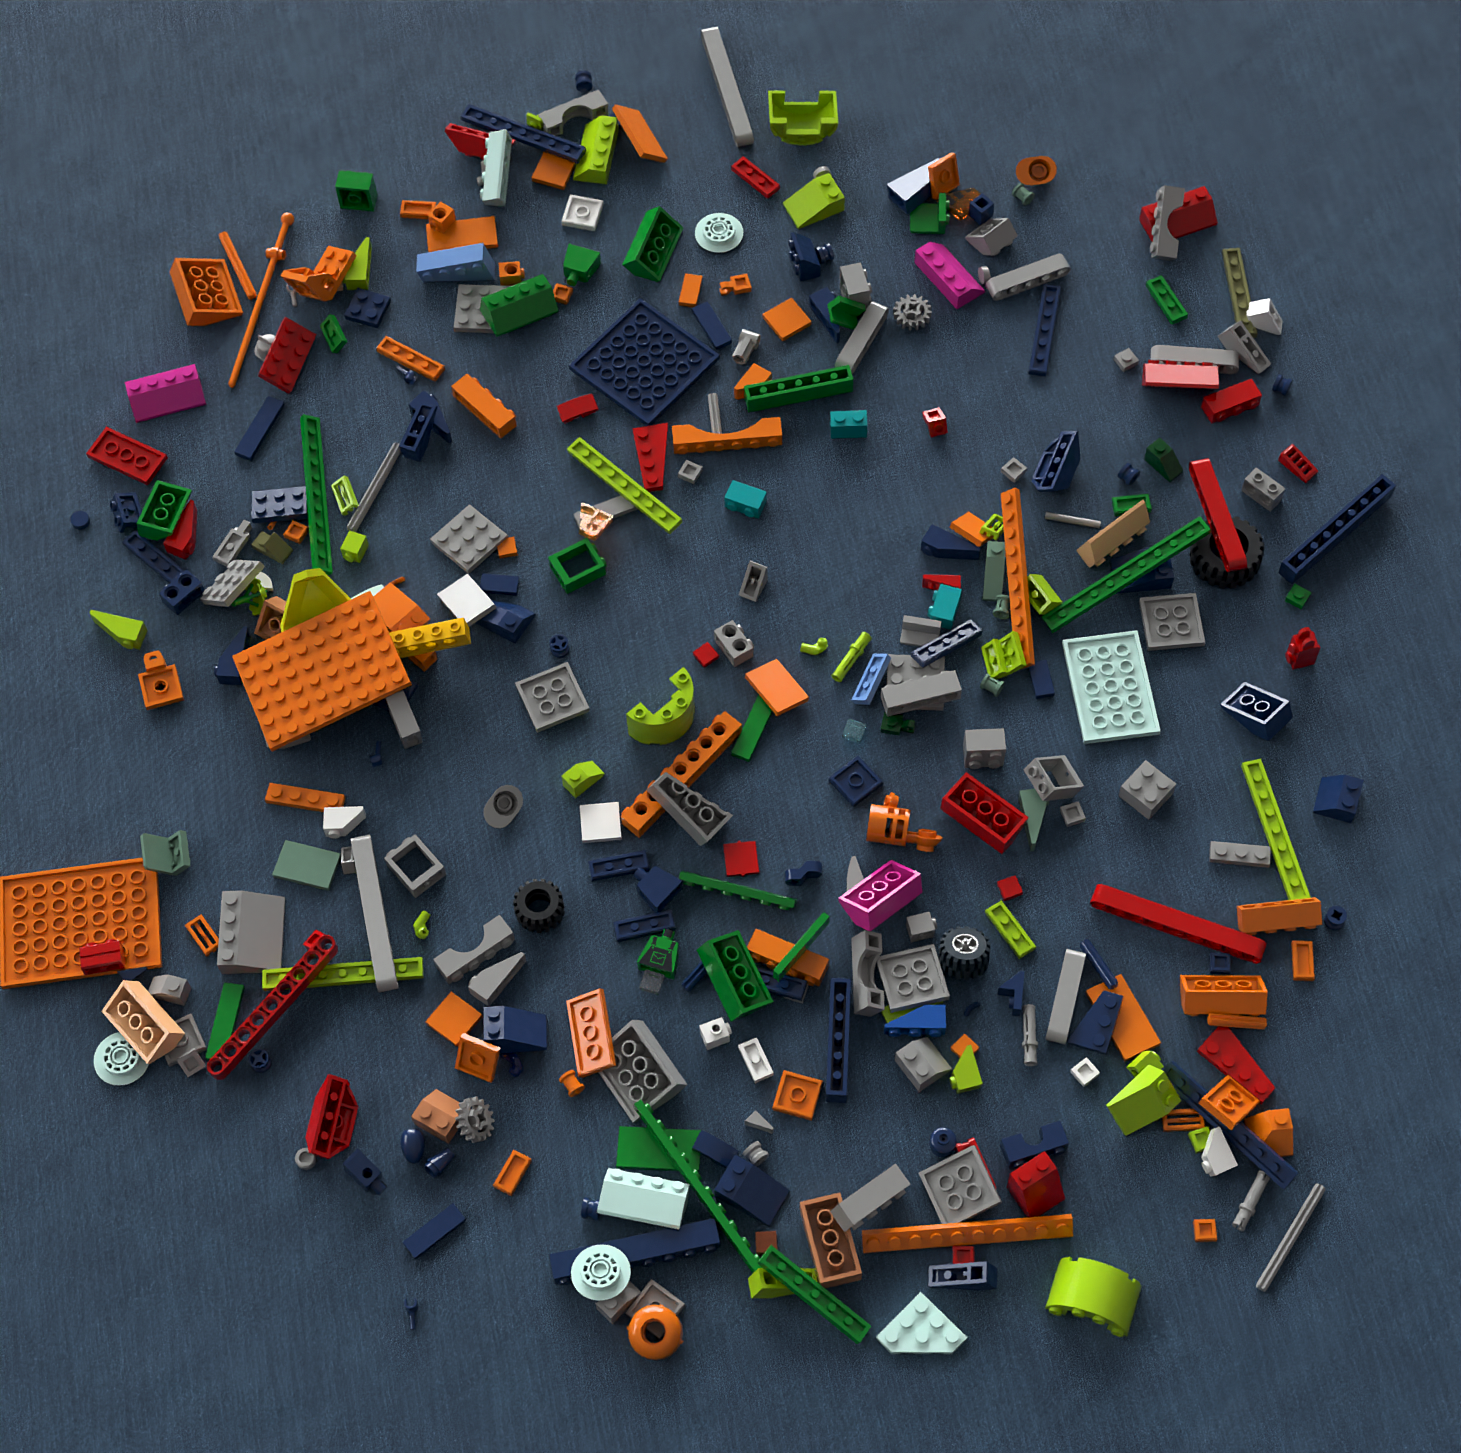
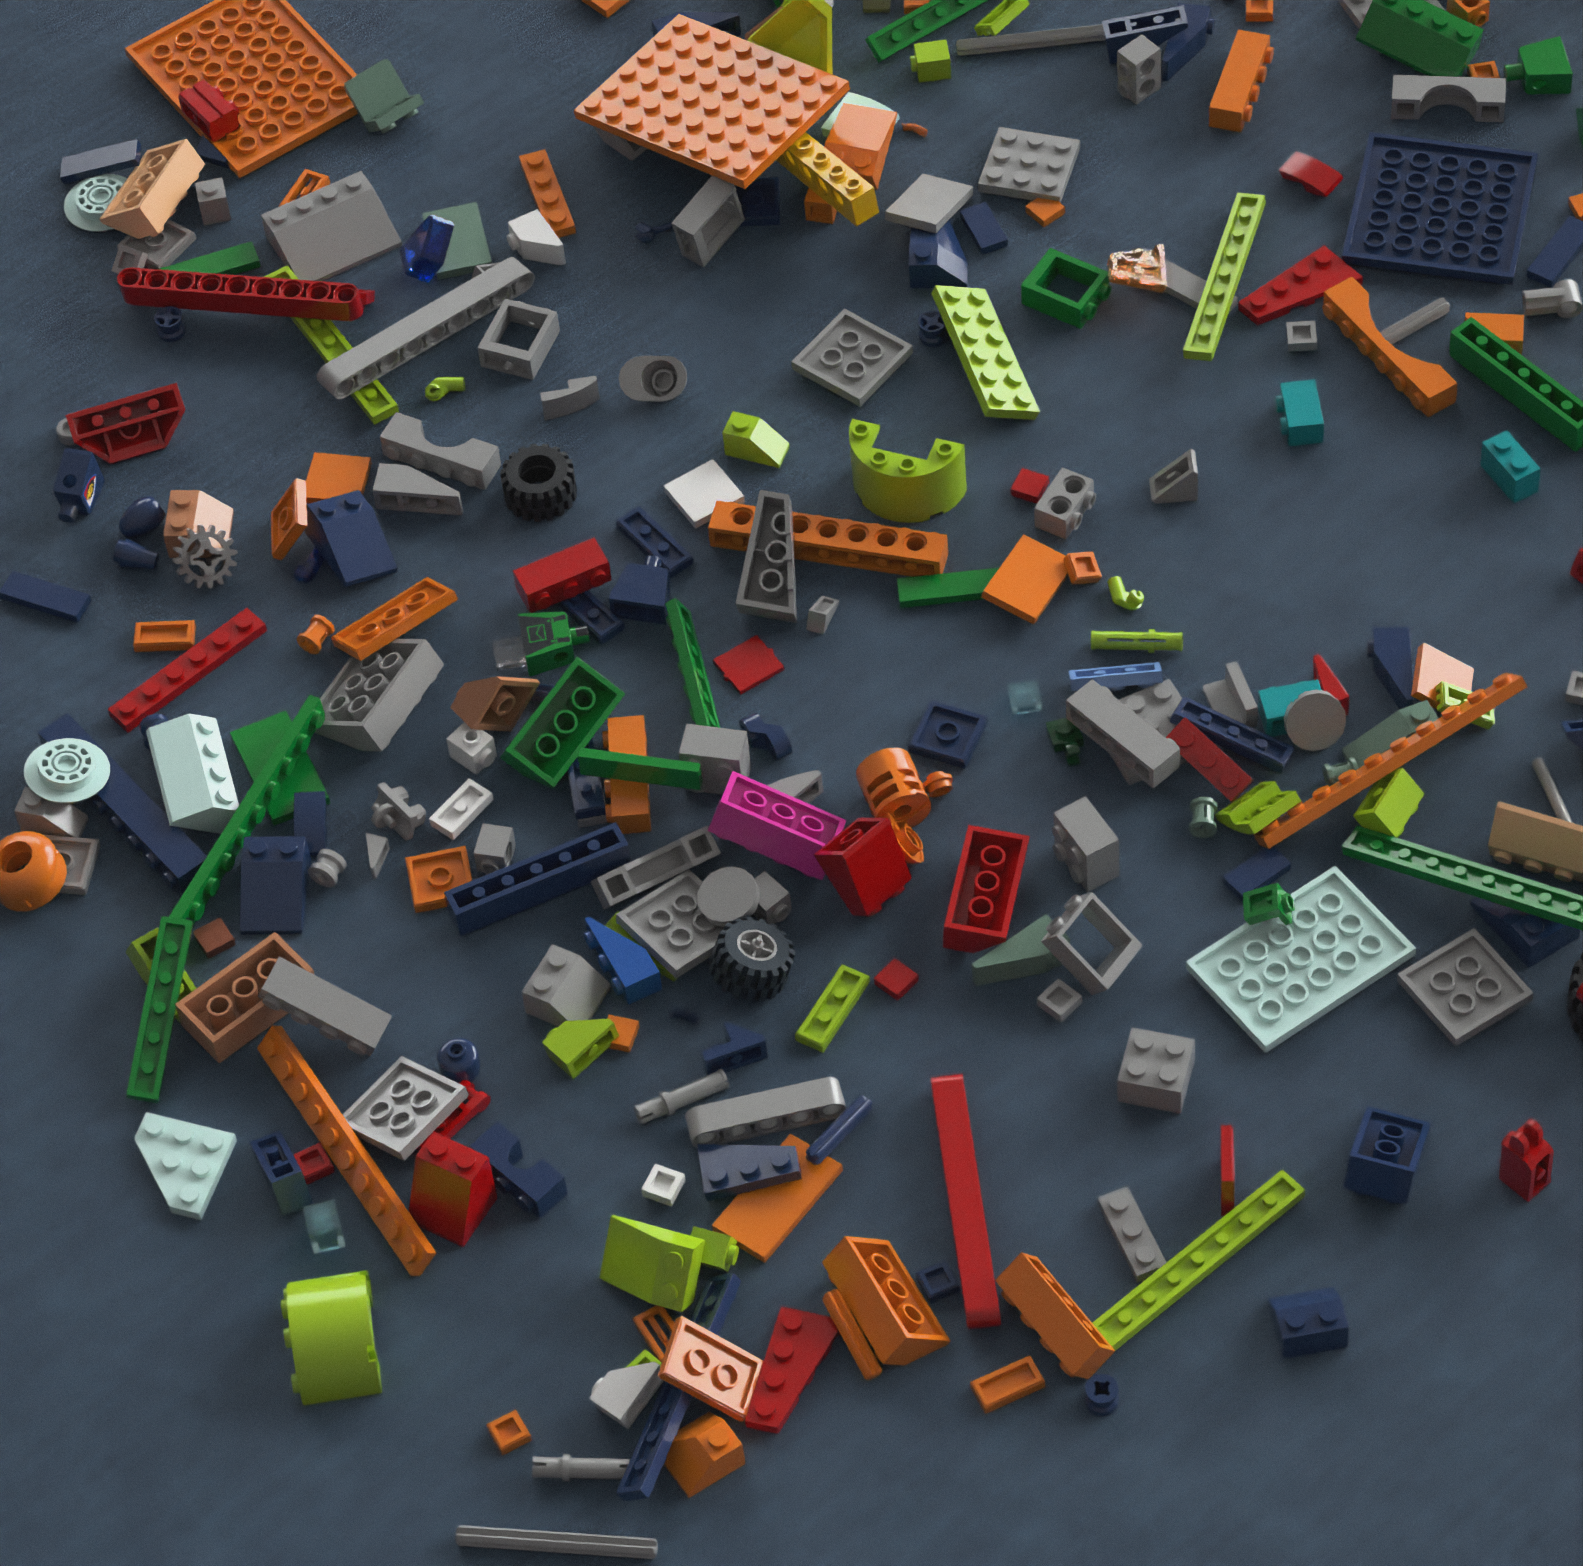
camera: 65 degrees right, 10 degrees down
(90, 1043) = (100, 161): none -> tile
(312, 884) = (427, 248): none -> clear blue slope
(445, 448) = (1139, 69): none -> light grey brick
(481, 855) = (563, 402): none -> light grey slope
(548, 1171) = (187, 669): none -> red plate
(581, 302) = (1479, 96): none -> light grey arch
(598, 628) = (985, 352): none -> lime plate
(622, 924) = (562, 575): none -> red brick
(696, 1004) = (494, 702): none -> nougat slope
(729, 803) = (821, 614): none -> light grey piece
(736, 1097) = (393, 811): none -> light grey hips
(784, 657) = (1082, 568): none -> orange tile
(798, 1055) = (494, 848): none -> light grey brick
(811, 904) = (718, 753): none -> light grey brick
(915, 944) = (728, 895): none -> light grey tile
(936, 862) = (865, 865): none -> red slope
(959, 662) = (1210, 760): none -> red plate
(966, 599) = (1315, 720): none -> light grey tile
(1017, 1268) = (324, 1226): none -> clear light blue brick
(1076, 683) = (1267, 904): none -> green bracket
(1234, 787) = (1227, 1171): none -> red tile

